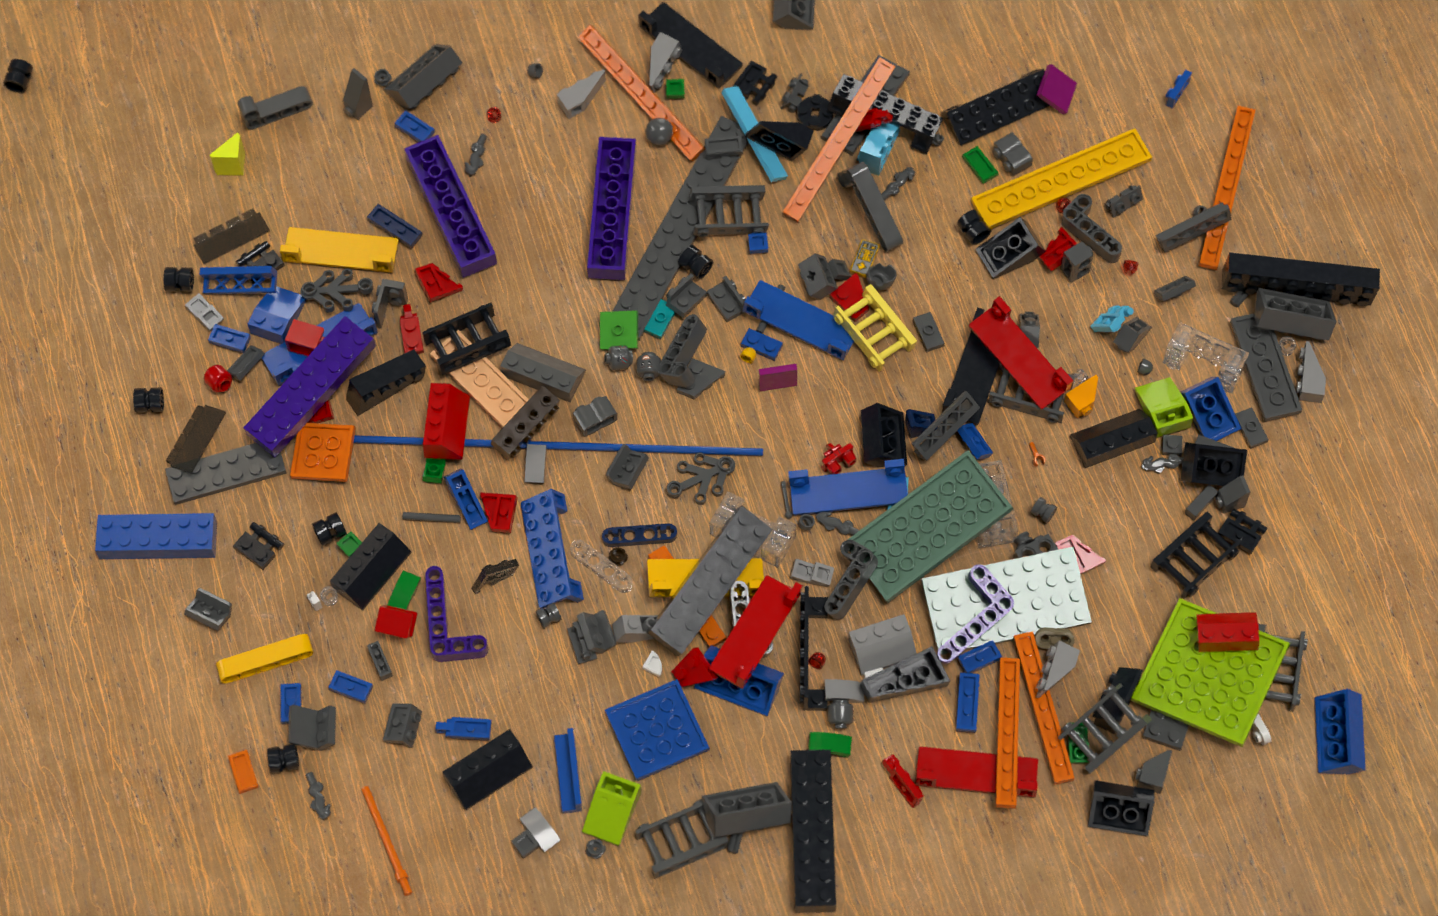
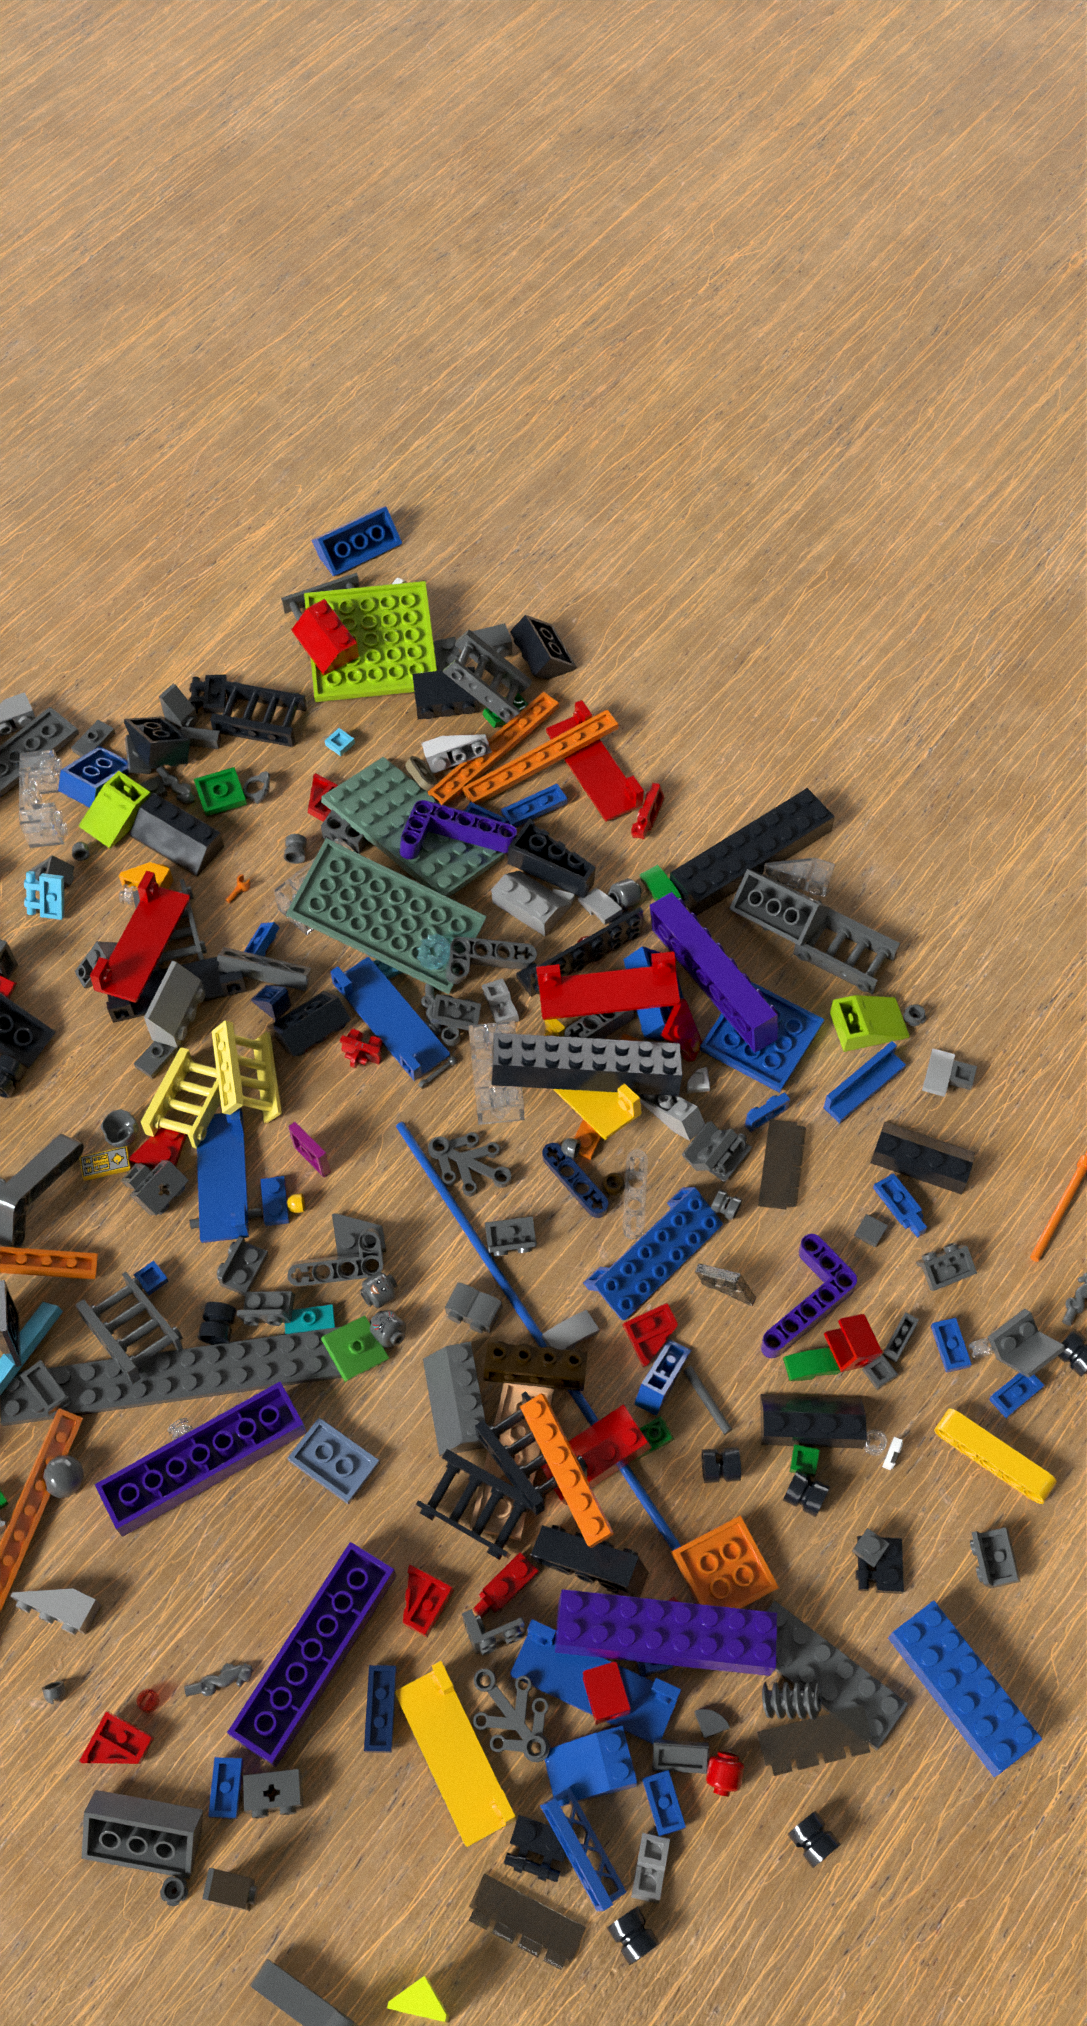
camera: 125 degrees left, 5 degrees down
(224, 436) = (792, 1702): none -> dark grey piece
(250, 391) = (710, 1722): none -> dark grey tile
(269, 540) = (870, 1547): none -> dark grey plate
(334, 701) = (980, 1348): none -> clear bush
(367, 633) = (880, 1372): none -> dark grey tile
(385, 490) = (721, 1465): none -> black wheel
(391, 149) = (259, 1785): none -> dark grey brick
(438, 380) = (567, 1470): none -> orange plate
(463, 697) = (870, 1230): none -> dark grey tile
(467, 357) = (504, 1456): none -> black fence
(481, 87) = (116, 1742): none -> red wing
(557, 281) = (333, 1460): none -> sand blue plate
(557, 676) = (781, 1165): none -> clear smoke windscreen
(596, 681) = (774, 1106): none -> blue plate
(641, 208) = (179, 1428): none -> clear bush
(660, 541) = (571, 1147): none -> dark grey hinge
(723, 717) = (714, 972): none -> dark purple brick
(763, 859) = (805, 874): none -> clear slope
(819, 531) = (455, 1012): none -> dark grey bracket
(868, 541) = (442, 951): none -> clear light blue gear
(878, 357) = (229, 1075): none -> light yellow fence
(951, 351) = (174, 1005): none -> light grey slope
(1128, 525) = (258, 797): none -> dark grey piece
(1128, 598) = (339, 742): none -> medium azure plate
(1136, 488) = (220, 791): none -> green plate

